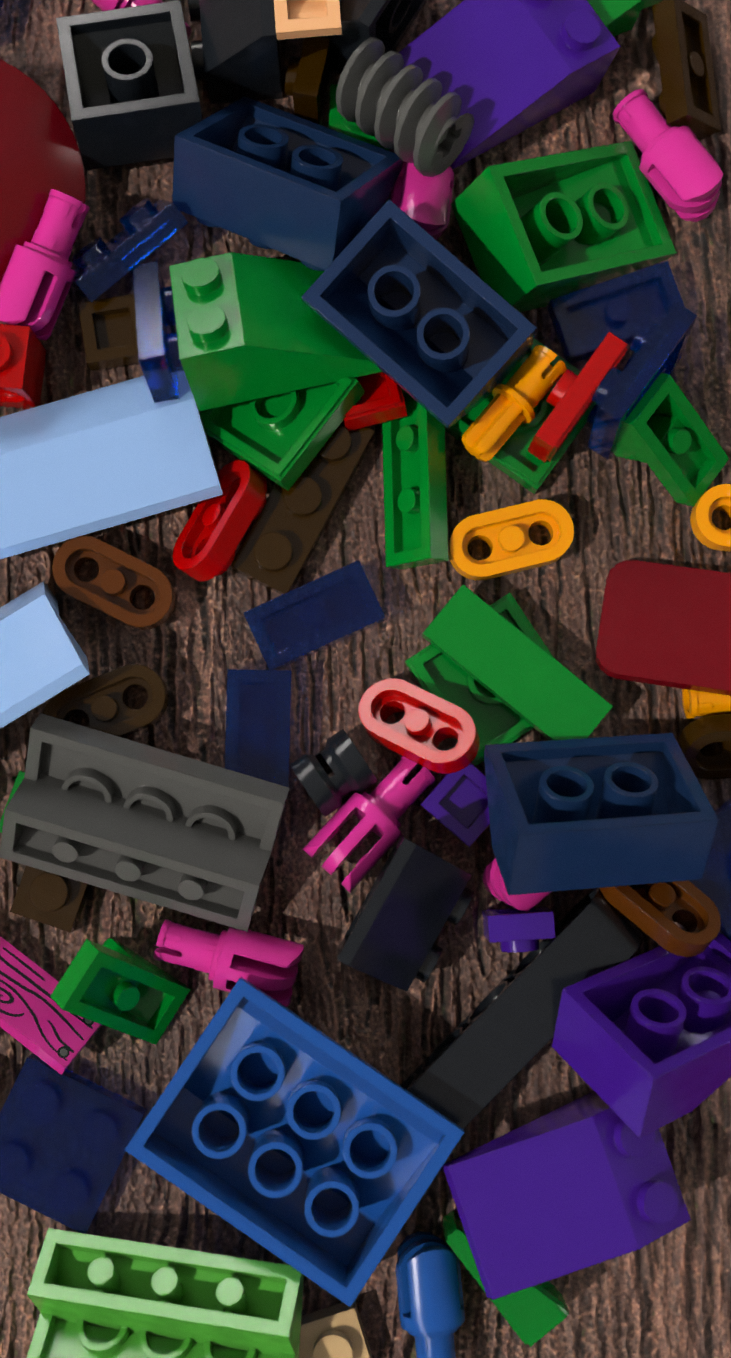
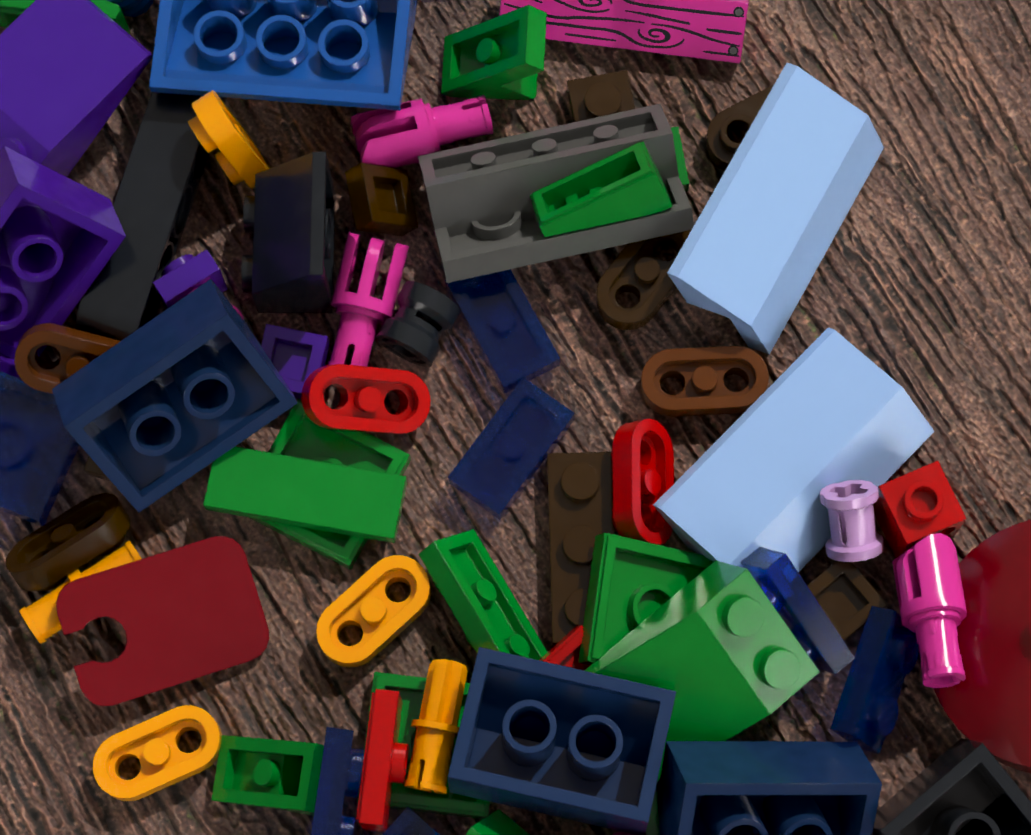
camera: 155 degrees right, 10 degrees down
(57, 377) = (852, 521): none -> lavender bush
(66, 794) = (602, 193): none -> green slope
(302, 910) = (381, 199): none -> dark brown plate
(411, 1041) = (219, 129): none -> light orange plate

